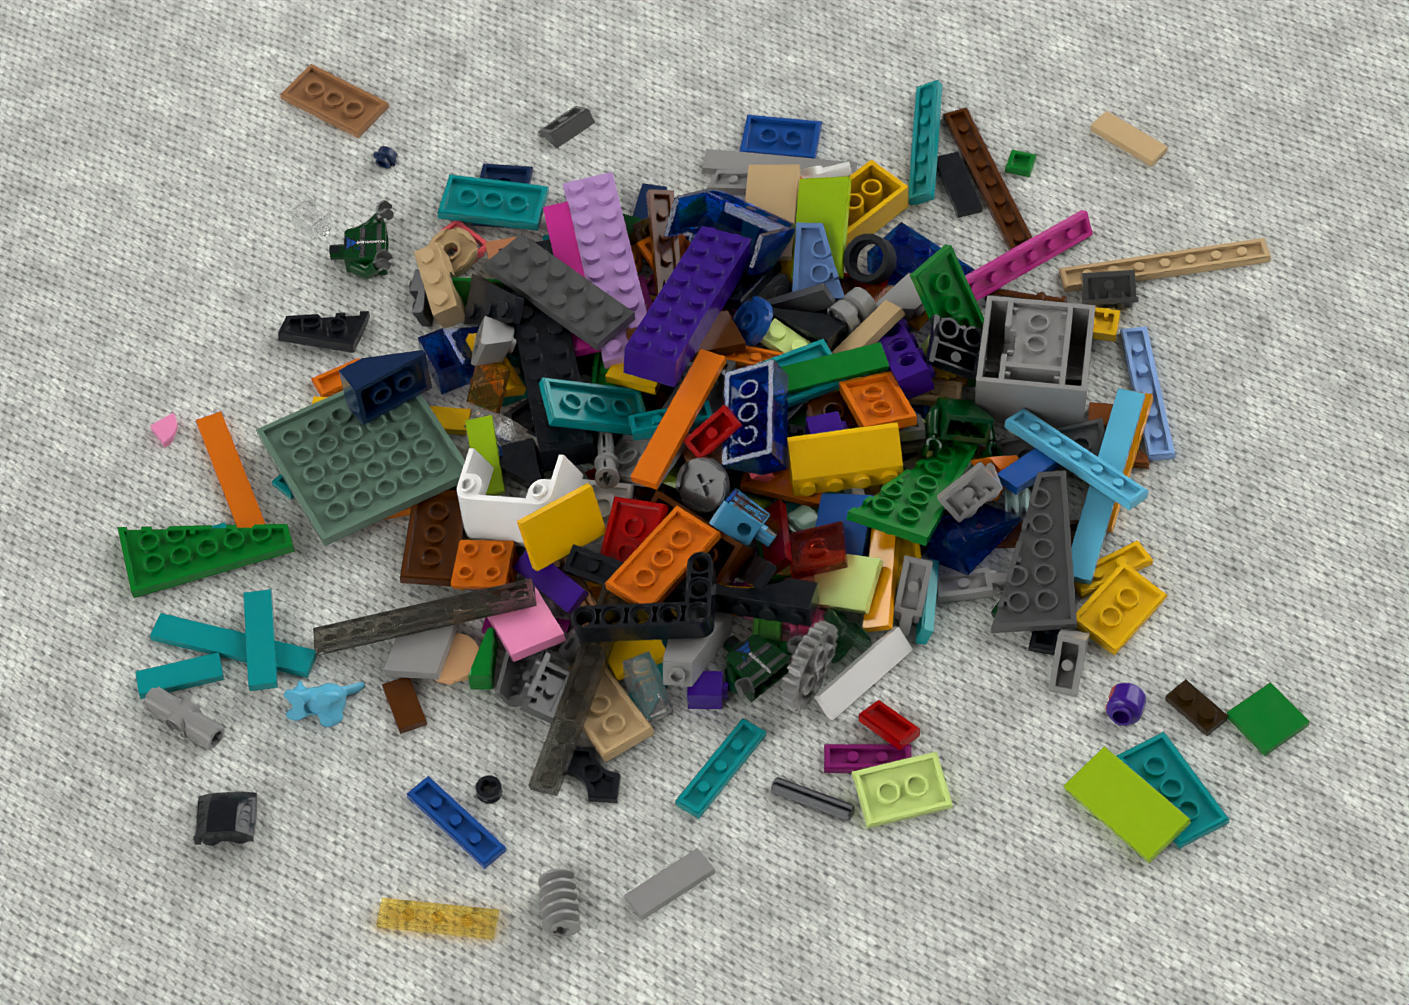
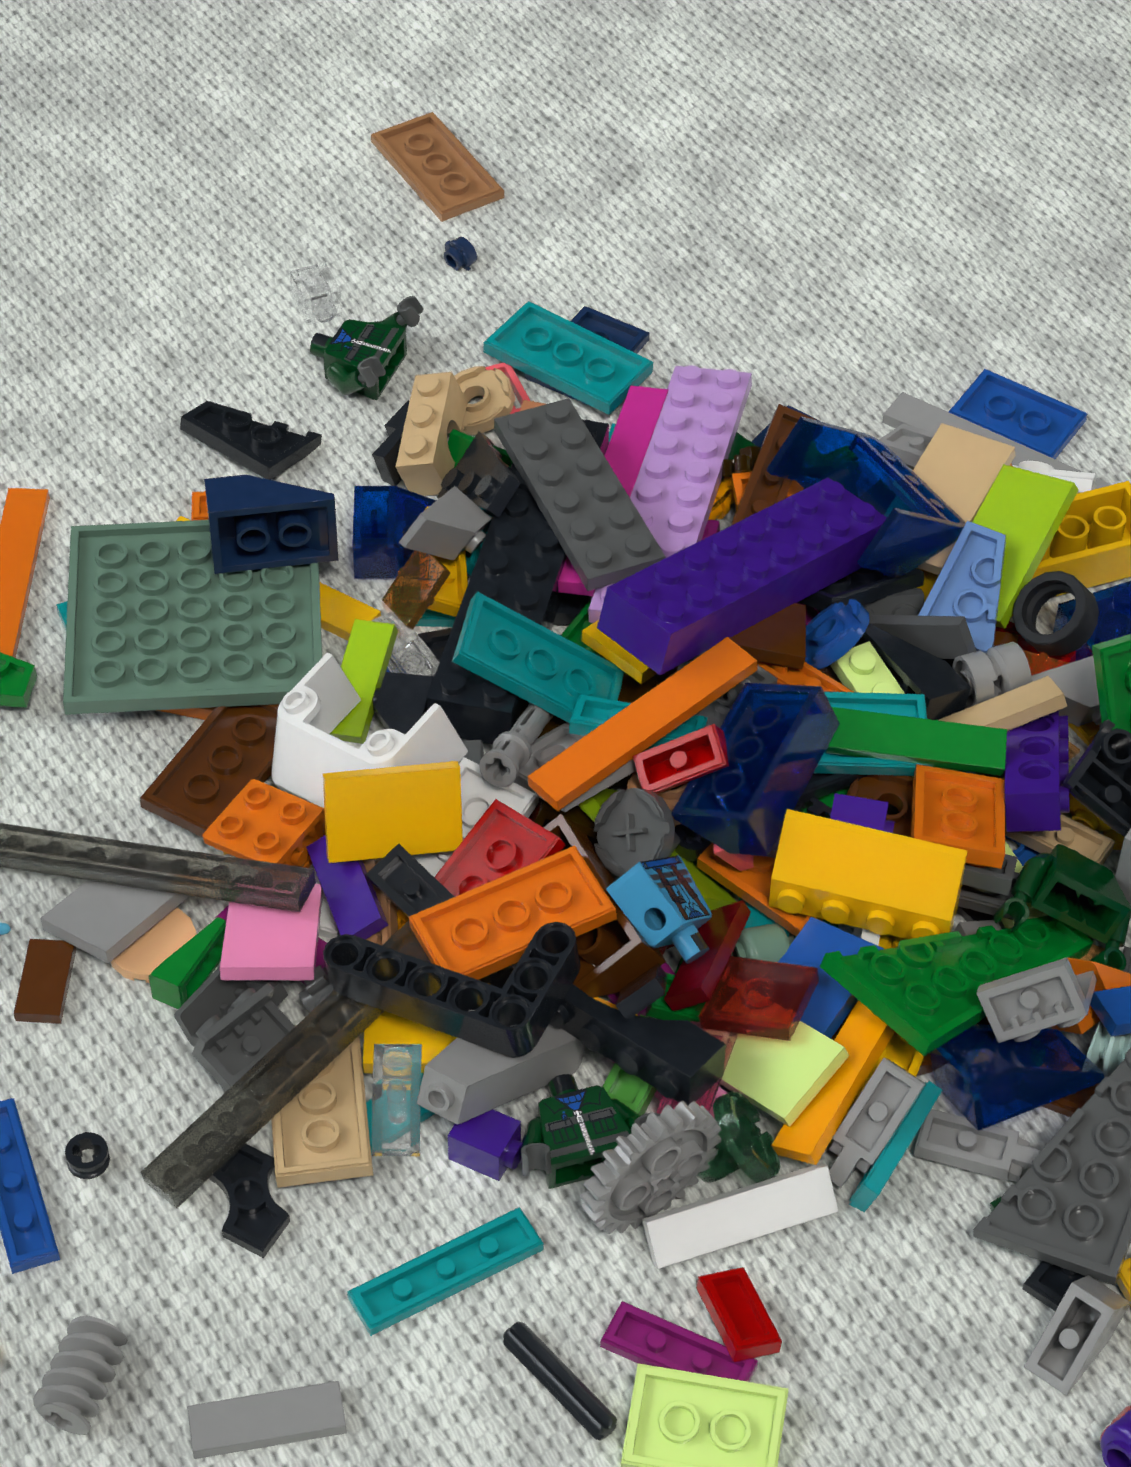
camera: 20 degrees right, 5 degrees down
(567, 126) = (727, 300): dark grey slope -> none

